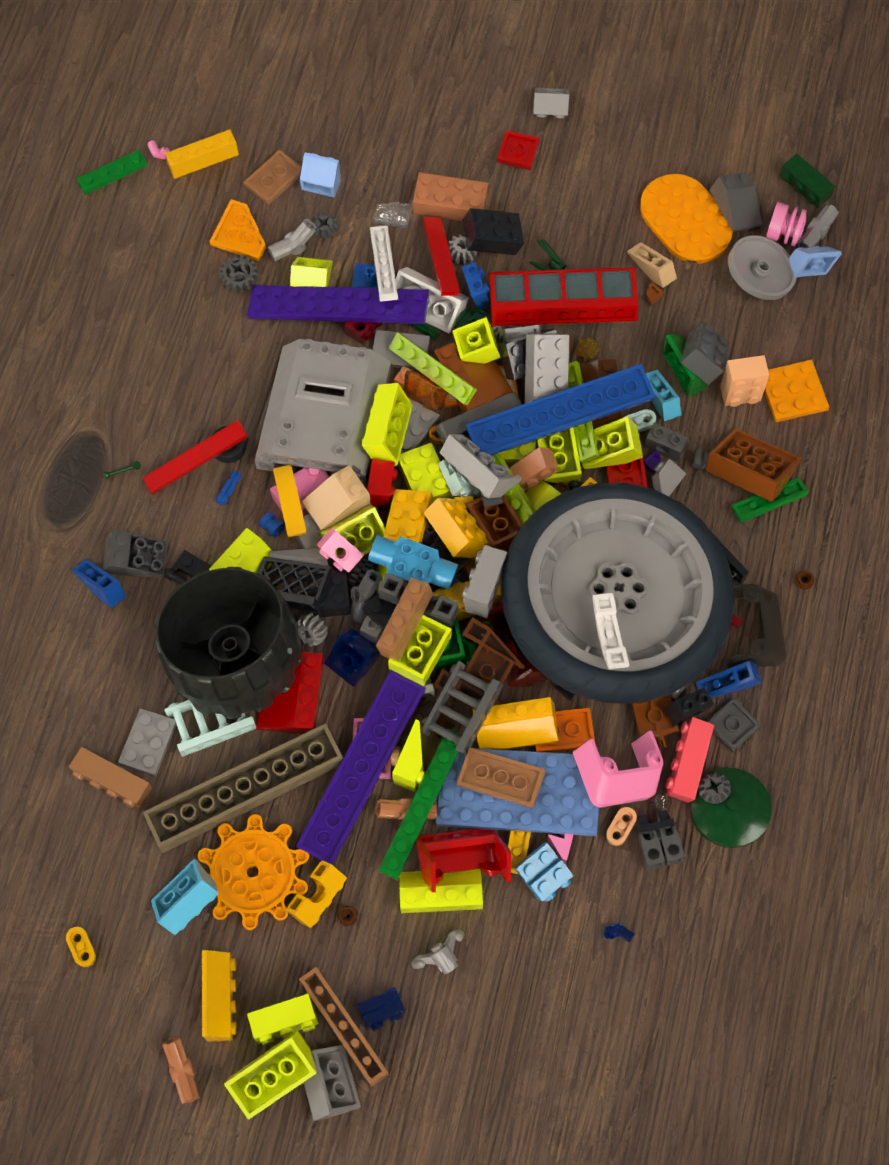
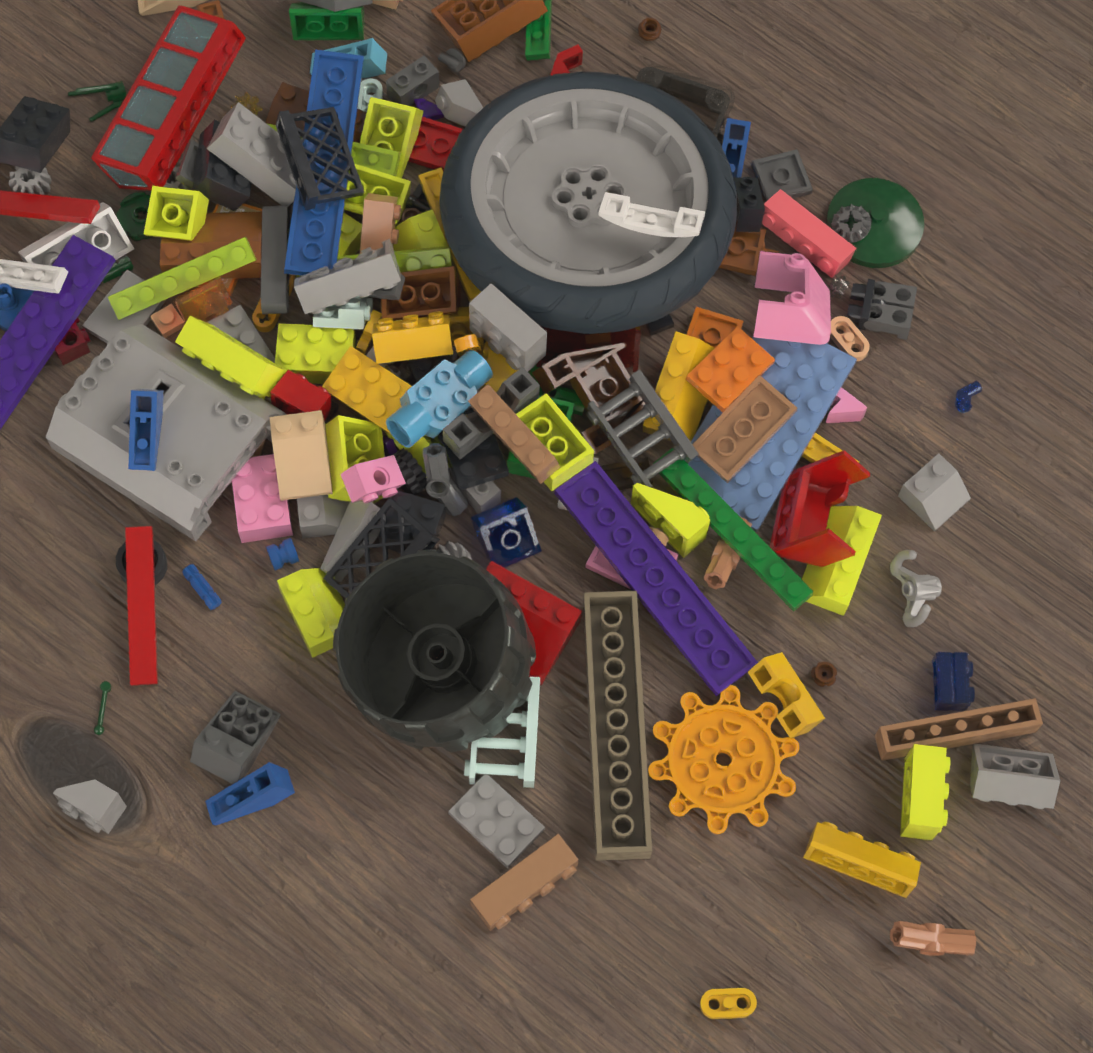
camera: 70 degrees left, 0 degrees up
(49, 493) = (92, 803): none -> light grey slope
(184, 897) = (723, 849): medium azure slope -> none
(187, 564) = (290, 672): black plate -> none
(272, 1075) = (987, 829): neon yellow slope -> none
(289, 501) = (271, 509): yellow slope -> none
(304, 394) = (145, 428): none -> blue slope
(463, 562) = (467, 343): none -> light orange beam
(476, 286) = (96, 183): blue plate -> none
(525, 939) = (935, 492): none -> light grey slope
(541, 747) = (730, 369): none -> orange plate
(544, 872) = (870, 438): plate -> none
(547, 392) = (299, 163): none -> black fence
(741, 532) = (567, 60): none -> red slope

